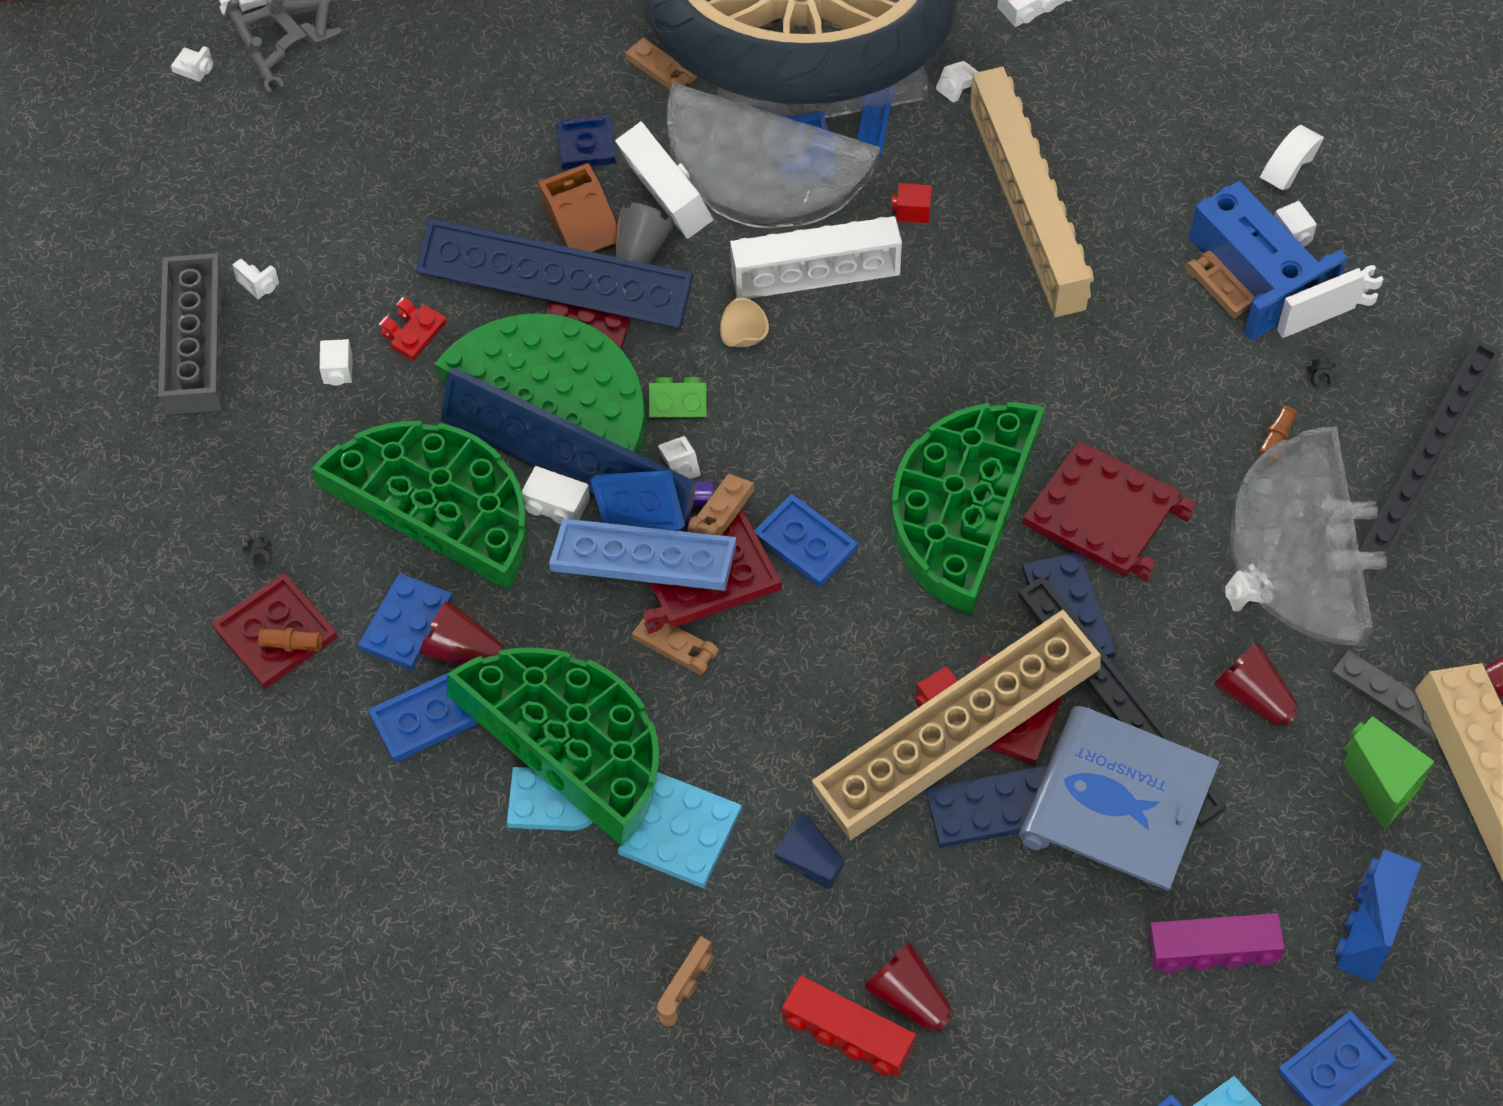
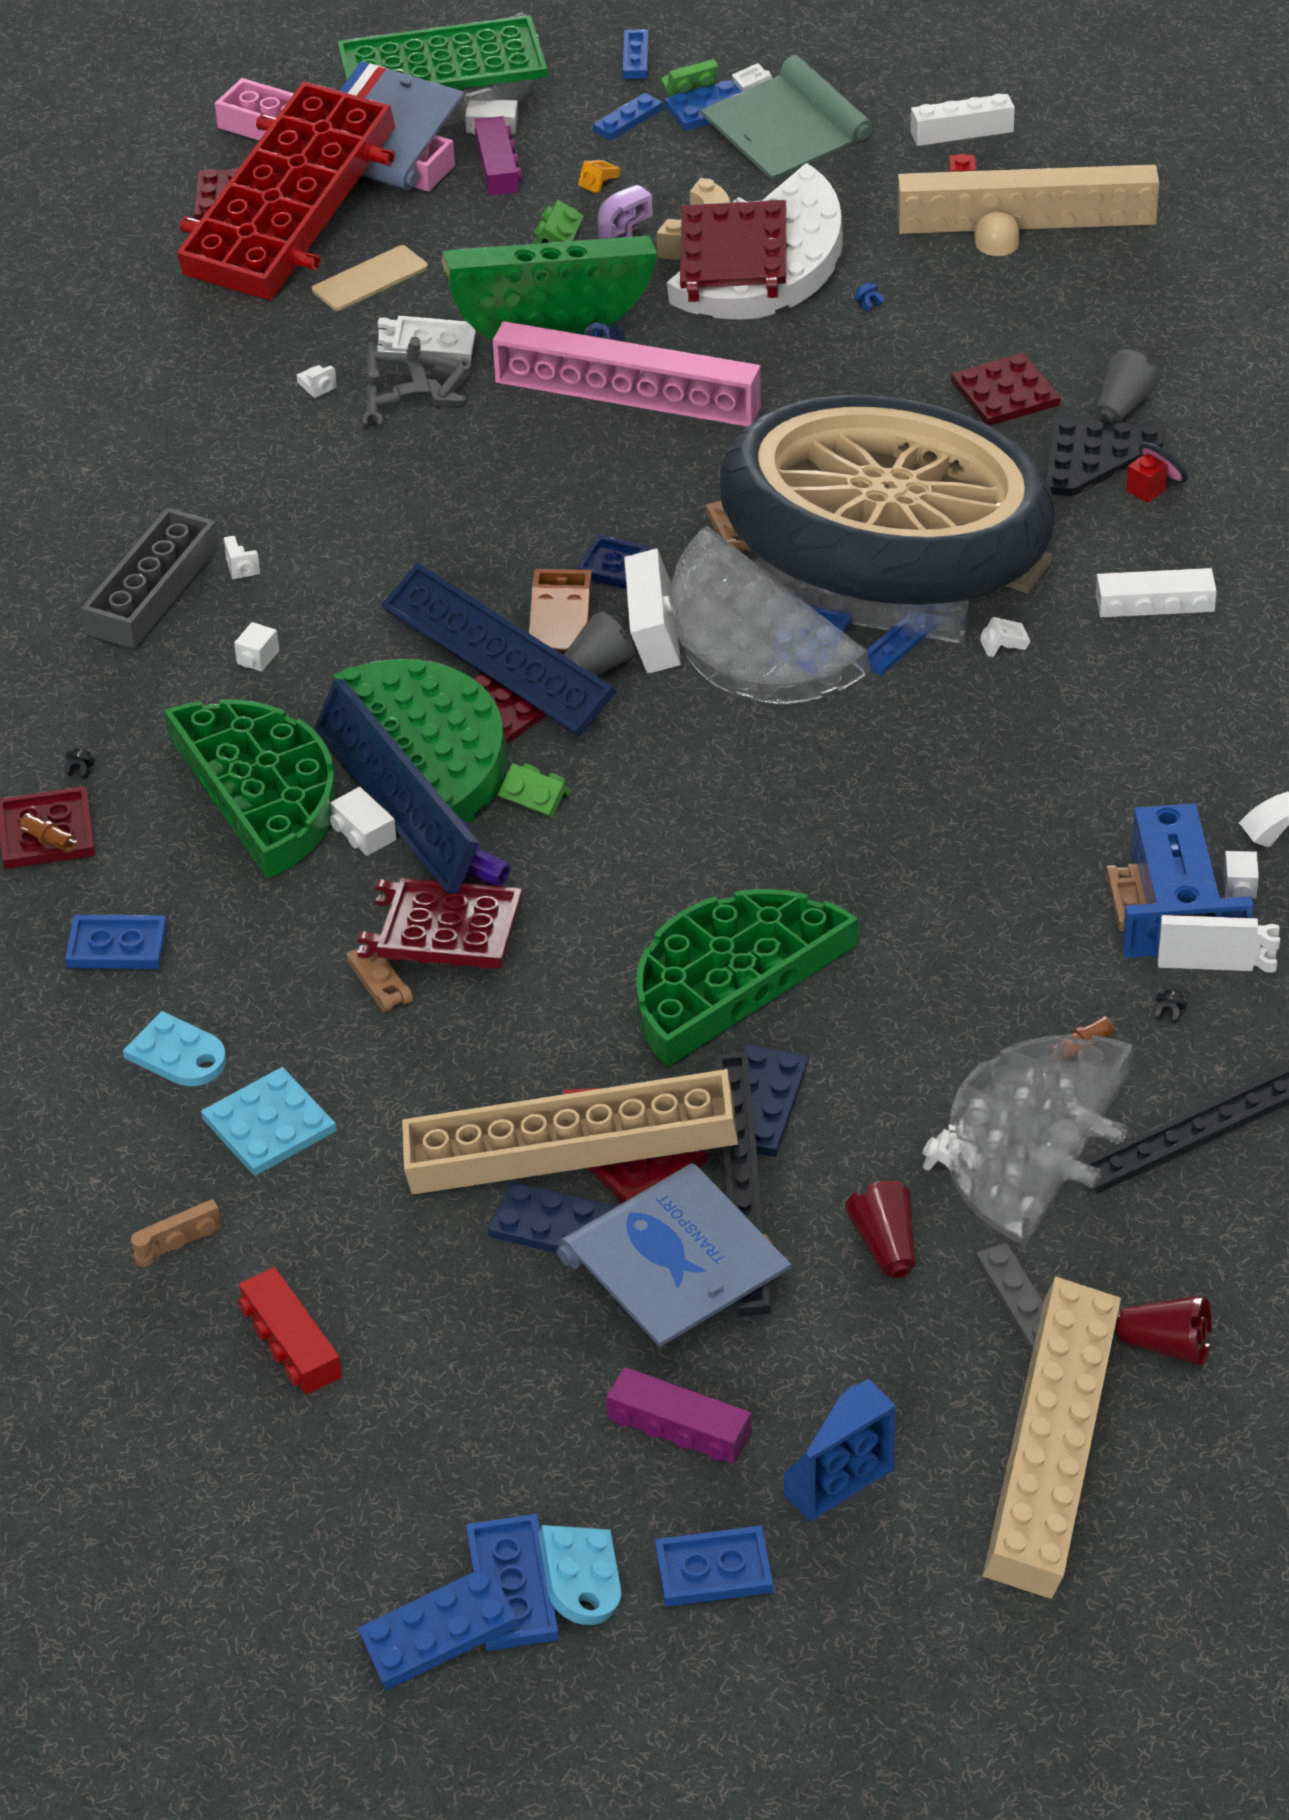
camera: 30 degrees right, 15 degrees down
(403, 621) = (161, 866): blue plate -> none
(417, 333) = (349, 653): red plate -> none
(458, 637) = (189, 892): dark red cone -> none
(569, 726) = (228, 994): green brick -> none
(638, 499) = (422, 844): blue plate -> none
(643, 554) = (397, 888): medium blue plate -> none
(680, 457) = (496, 837): white bracket -> none
(722, 506) = (499, 885): medium nougat plate -> none
(743, 323) = (640, 753): tan helmet -> none
(806, 540) = (559, 945): blue plate -> none
(810, 852) = (367, 1185): dark blue slope -> none
(816, 257) = (743, 723): white brick -> none
(911, 990) = (364, 1320): dark red cone -> none
(912, 203) = (877, 718): red brick -> none
(1030, 192) = (991, 747): tan brick -> none
(1105, 510) = (860, 1032): dark red plate -> none
(1385, 769) = (955, 1348): bright green slope -> none

